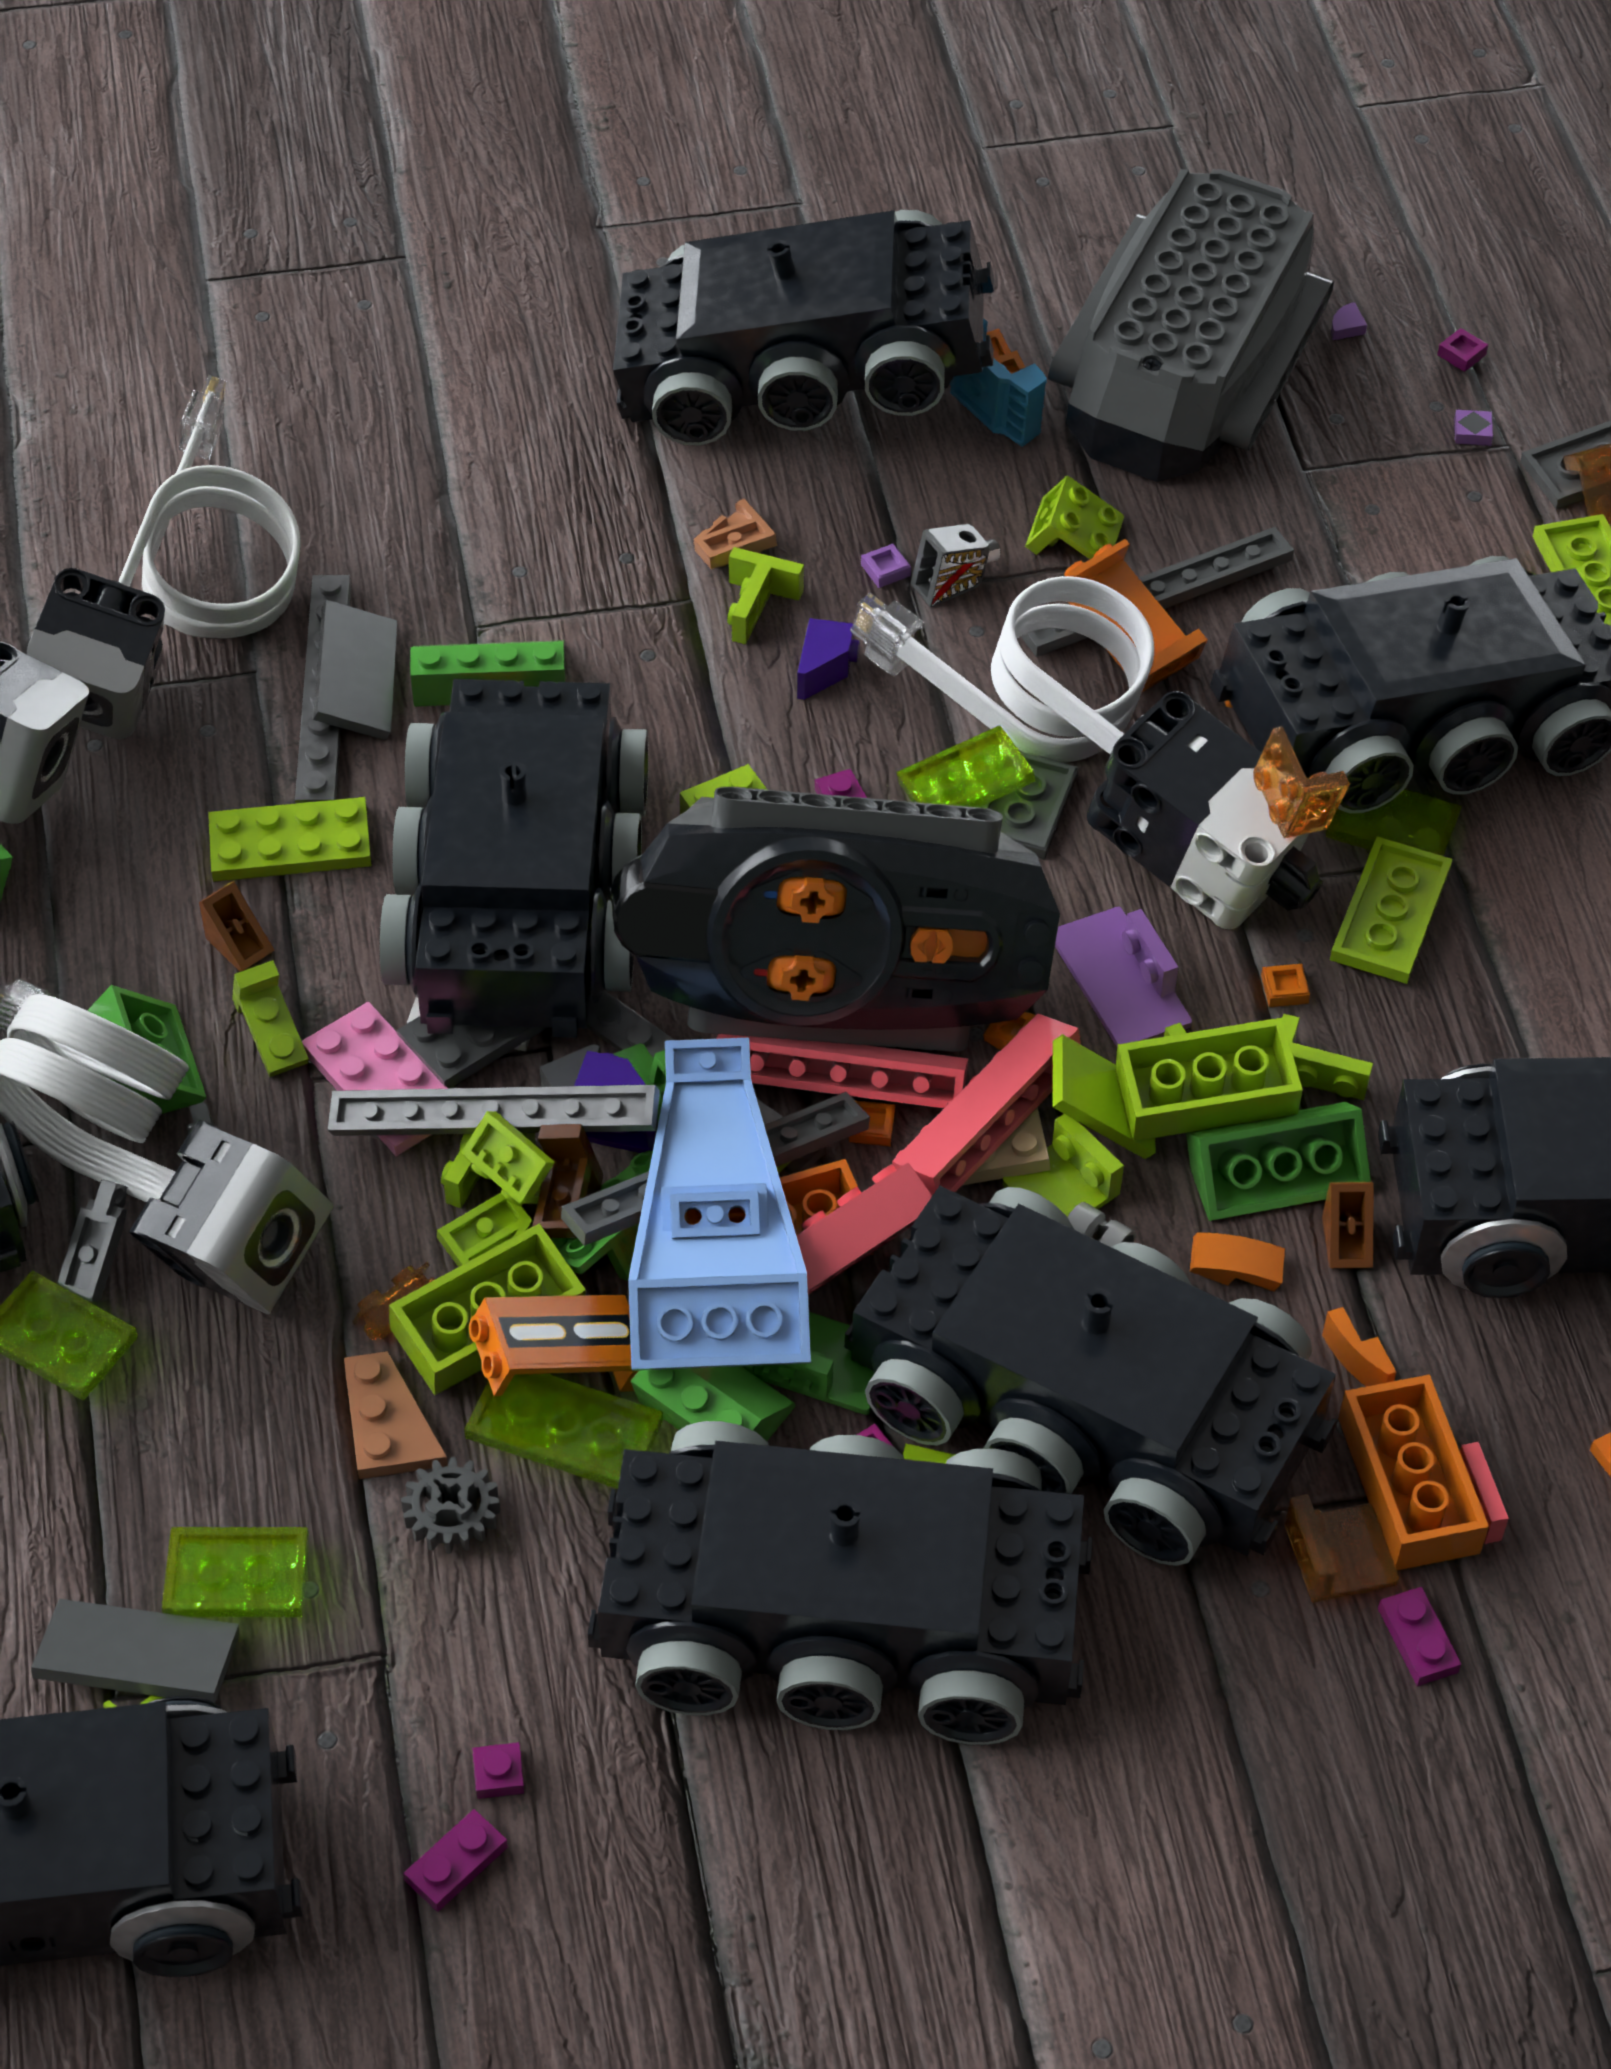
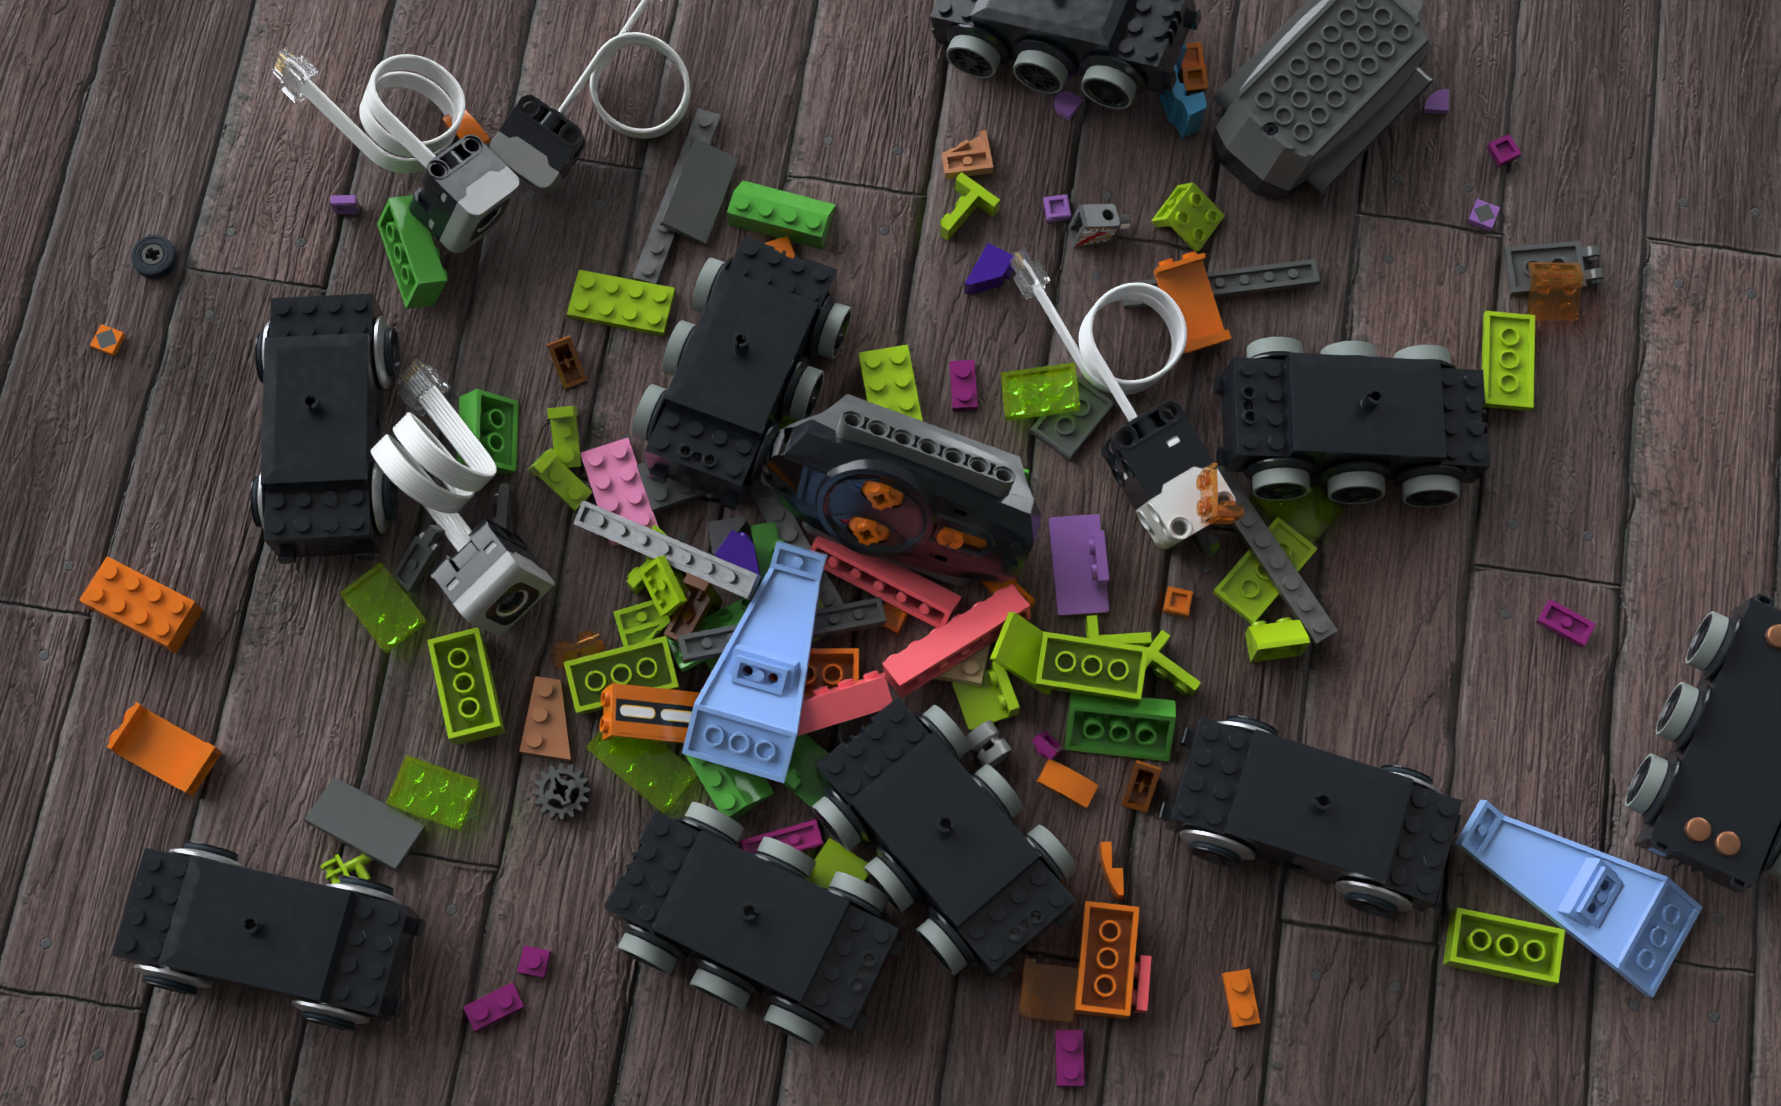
camera: 20 degrees right, 20 degrees up
(238, 1398) = (466, 686): none -> lime brick
(280, 1078) = (560, 479): none -> lime bracket
(844, 445) = (1067, 104): none -> medium lavender tile
(1184, 1218) = (1047, 745): none -> magenta plate
(1418, 899) = (1279, 568): none -> flat silver plate
(1454, 986) = (1276, 640): none -> lime slope

